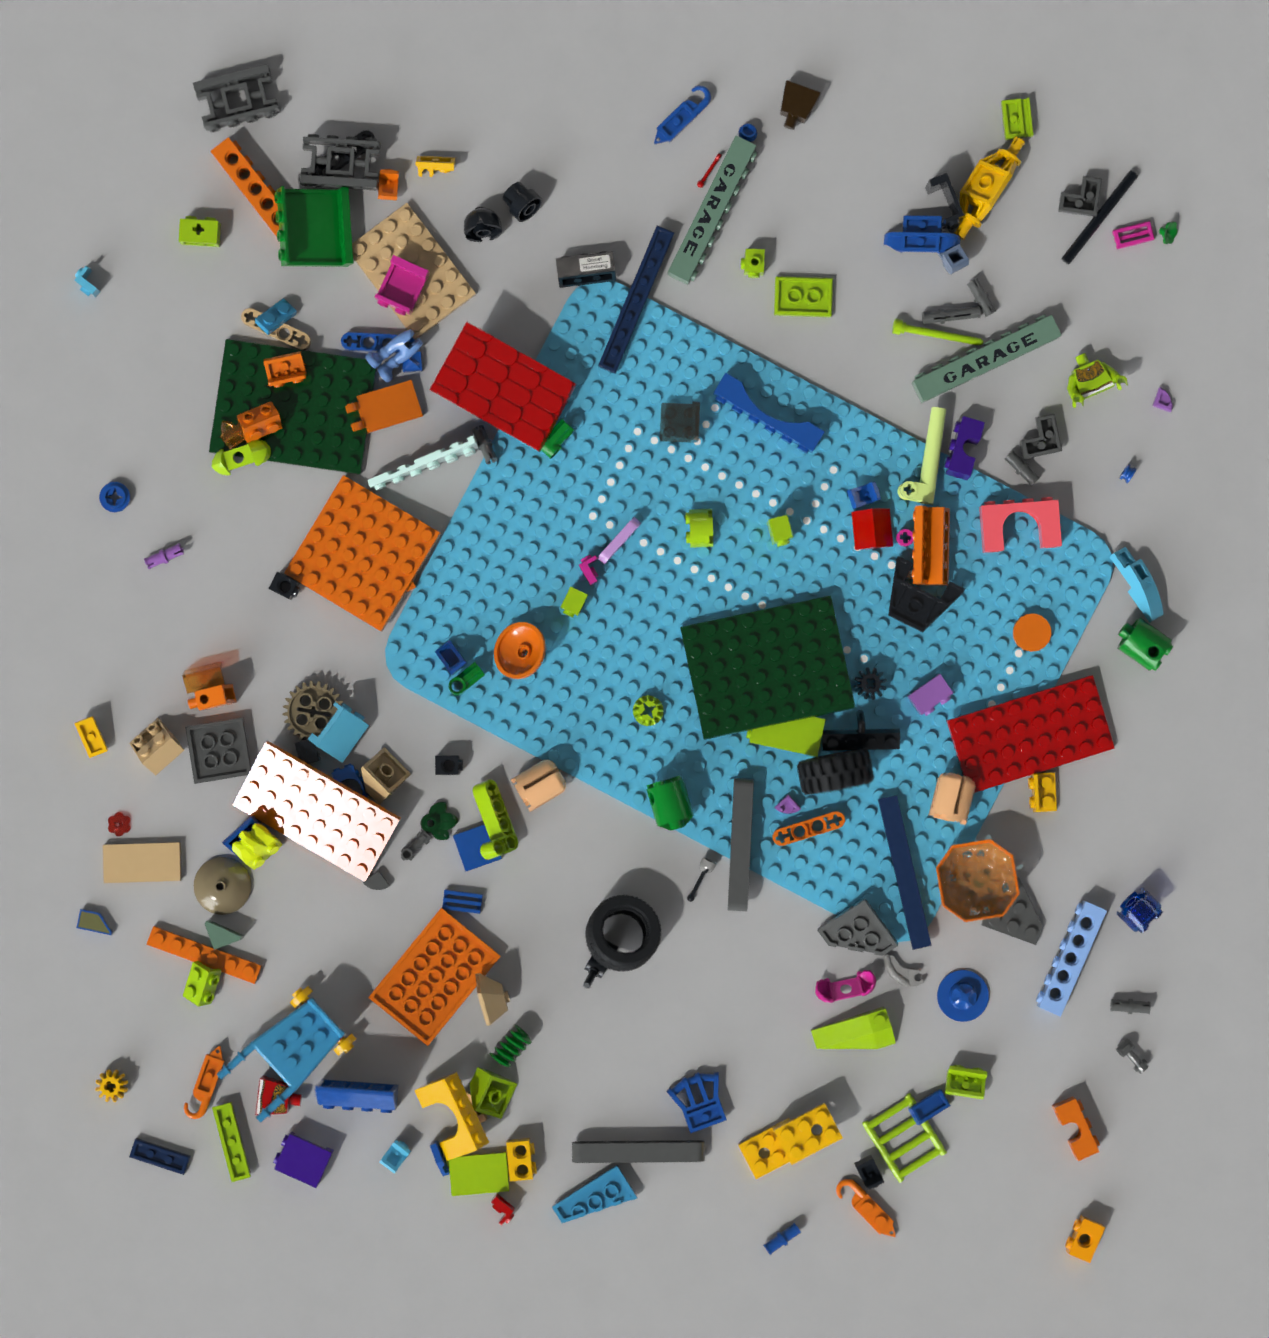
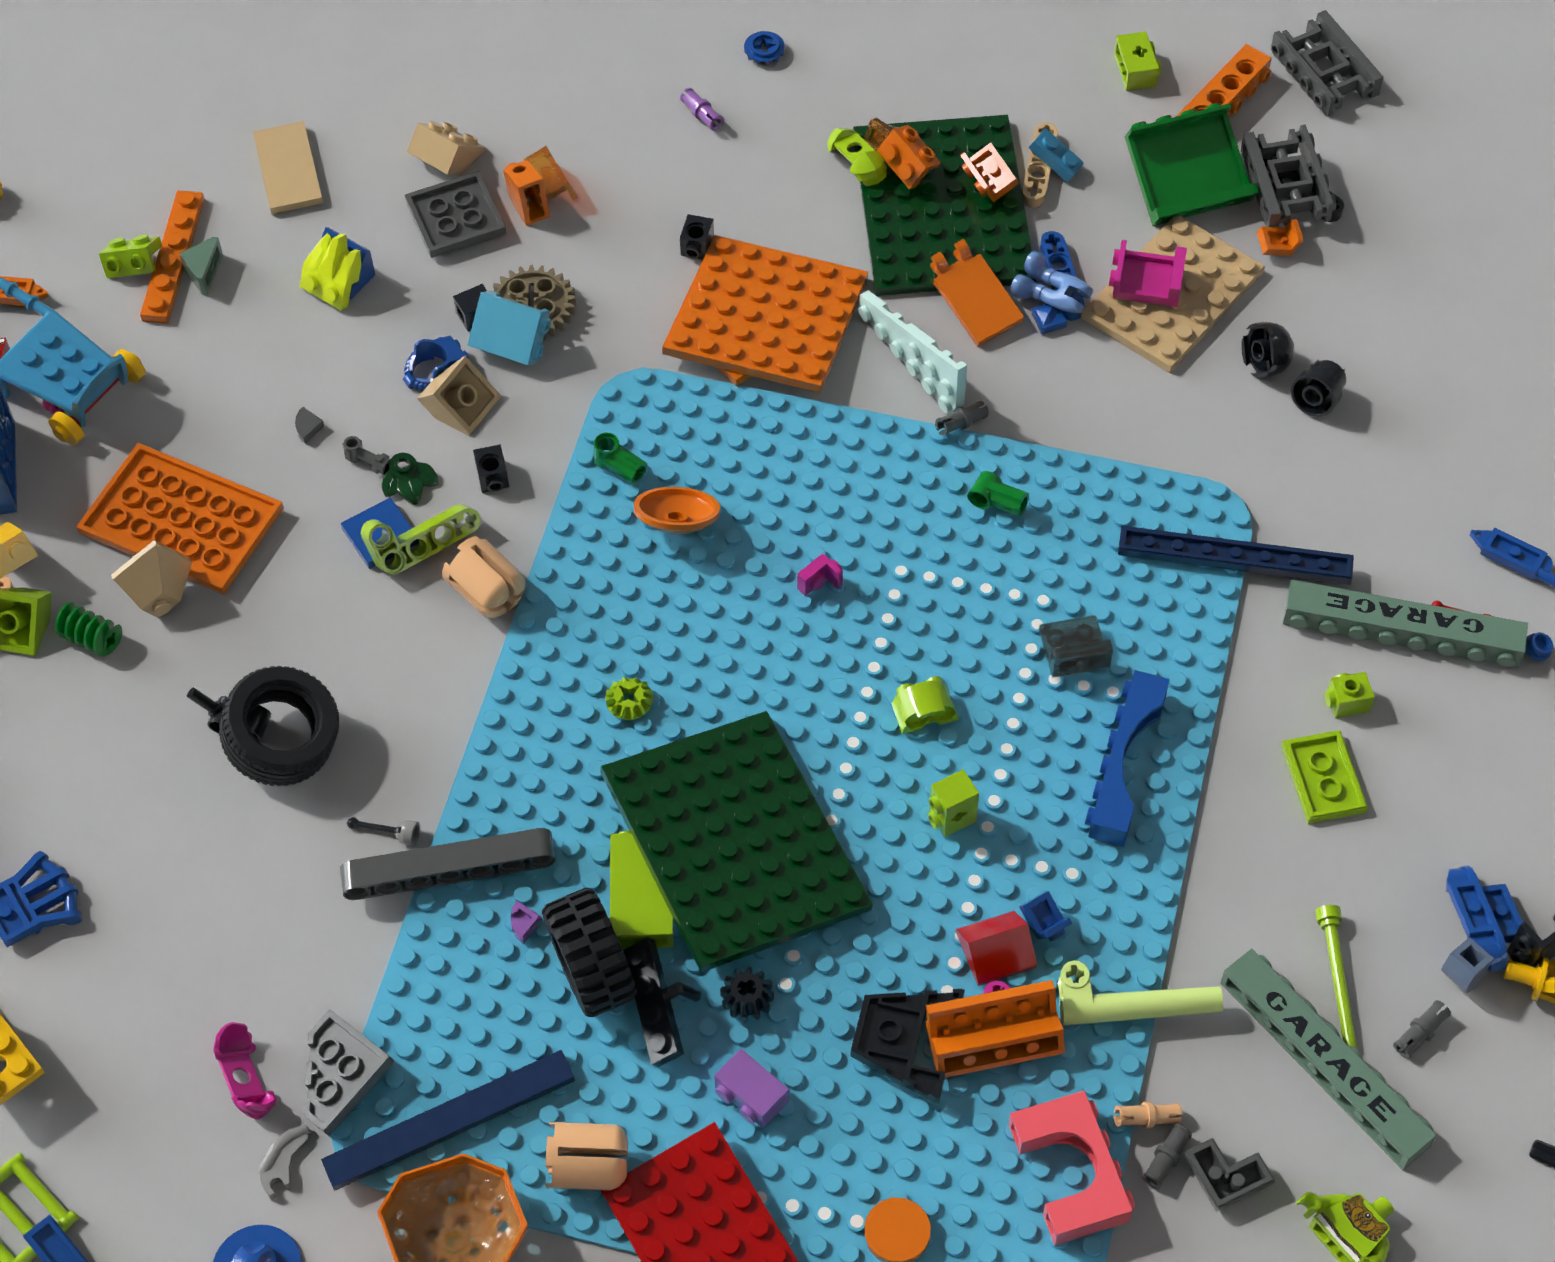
camera: 75 degrees right, 30 degrees down
(91, 736) = (444, 79): yellow plate -> none
(93, 922) = (198, 133): olive tile -> none
(123, 821) = (335, 136): clear red plant -> none
(235, 881) = (270, 258): dark tan dish -> none
(316, 811) = (392, 329): plate -> none
(443, 164) = (1328, 280): yellow plate -> none
(451, 657) = (643, 437): blue slope -> none
(462, 909) = (295, 511): blue tile -> none
(503, 386) = (1049, 403): red piece -> none
(573, 602) = (766, 565): lime brick -> none
(586, 269) = (1255, 483): black brick -> none
(619, 540) = (874, 604): lavender beam -> none
(670, 803) = (491, 746): green cylinder -> none
(809, 831) = (493, 958): orange beam -> none
(861, 1031) = (172, 1116): lime wedge -> none
(951, 315) = (1361, 958): dark grey pin -> none
(959, 463) = (1196, 1051): dark purple arch -> none
(996, 472) = (1147, 1114): none -> light nougat pin

